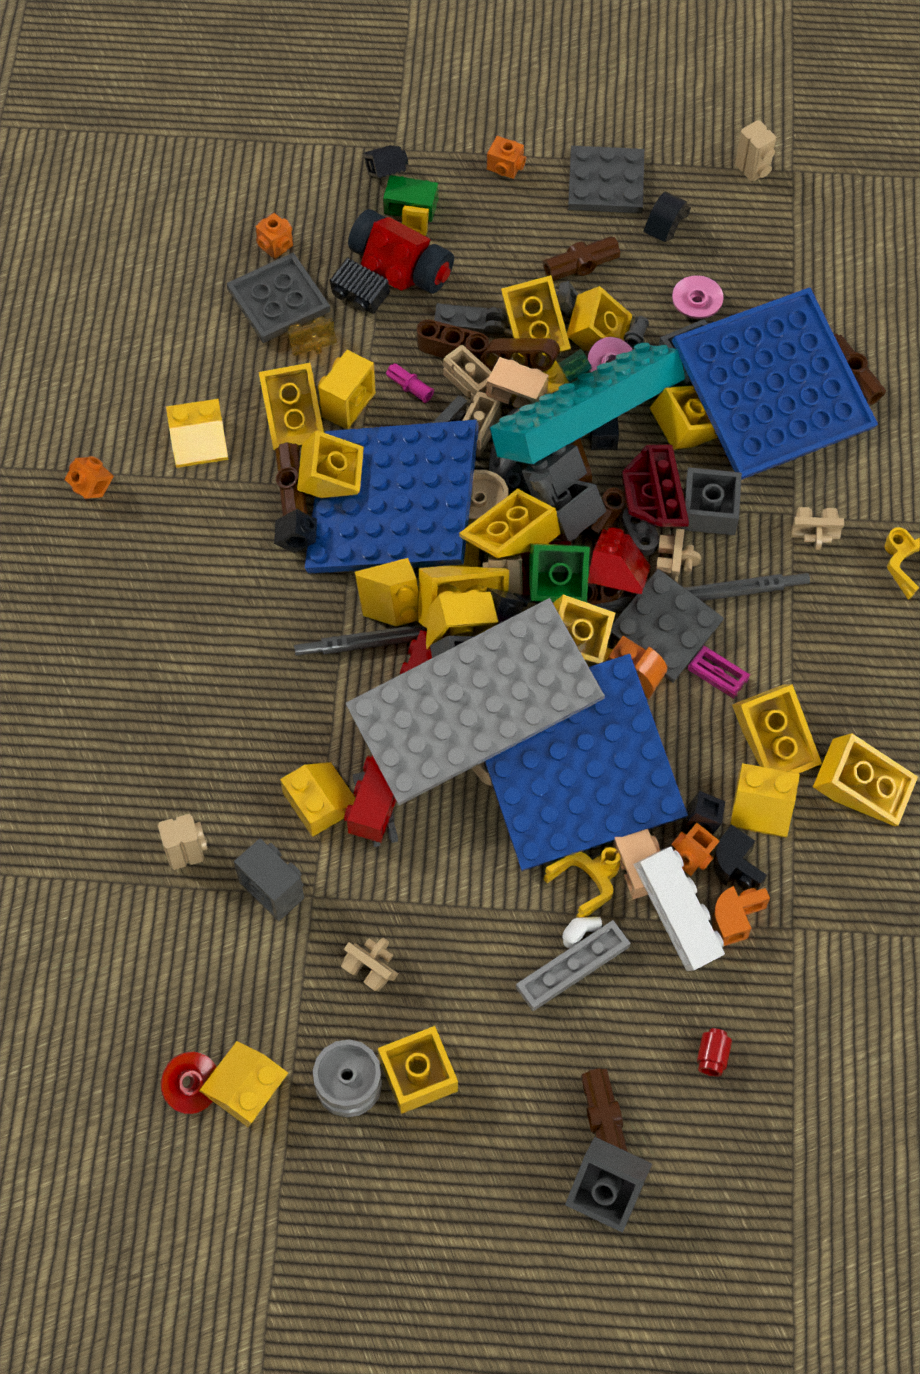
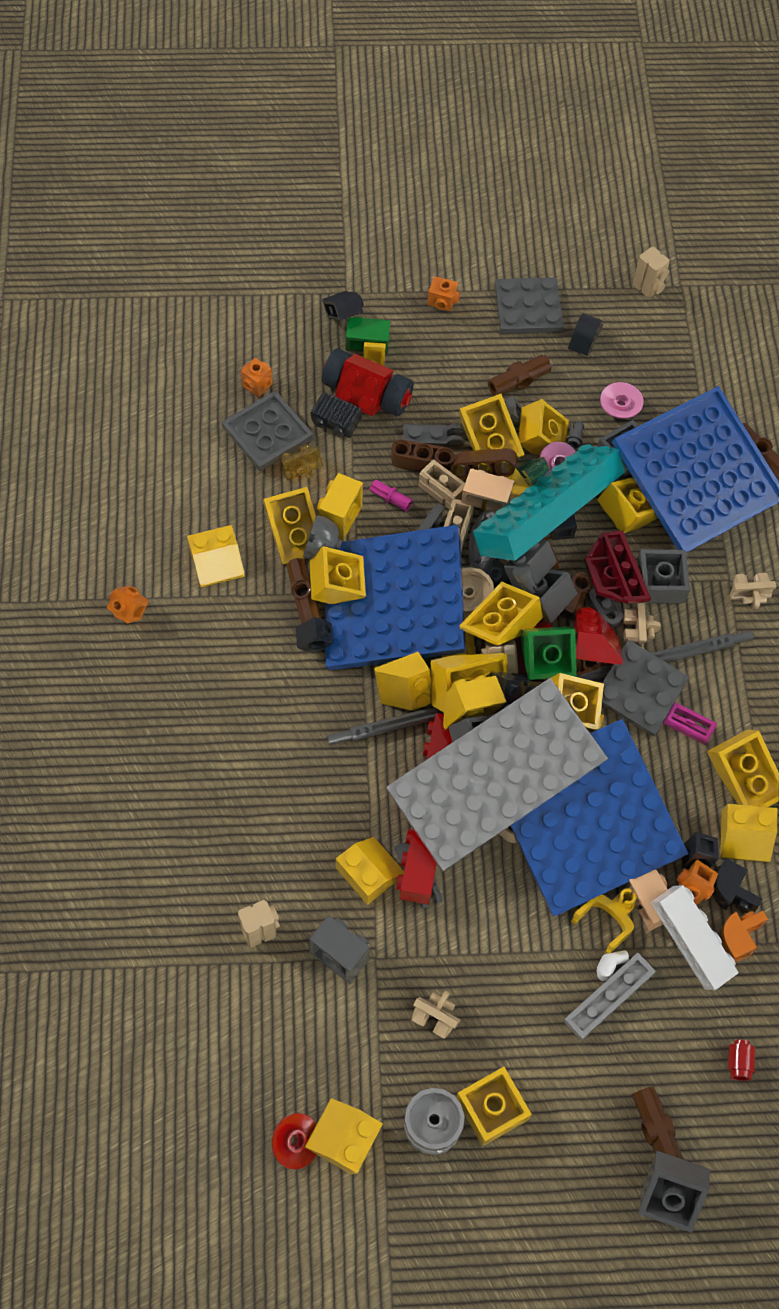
camera: 10 degrees left, 0 degrees up
(319, 416) = (324, 534): none -> dark grey cylinder
(648, 664) = (634, 721): orange brick -> none

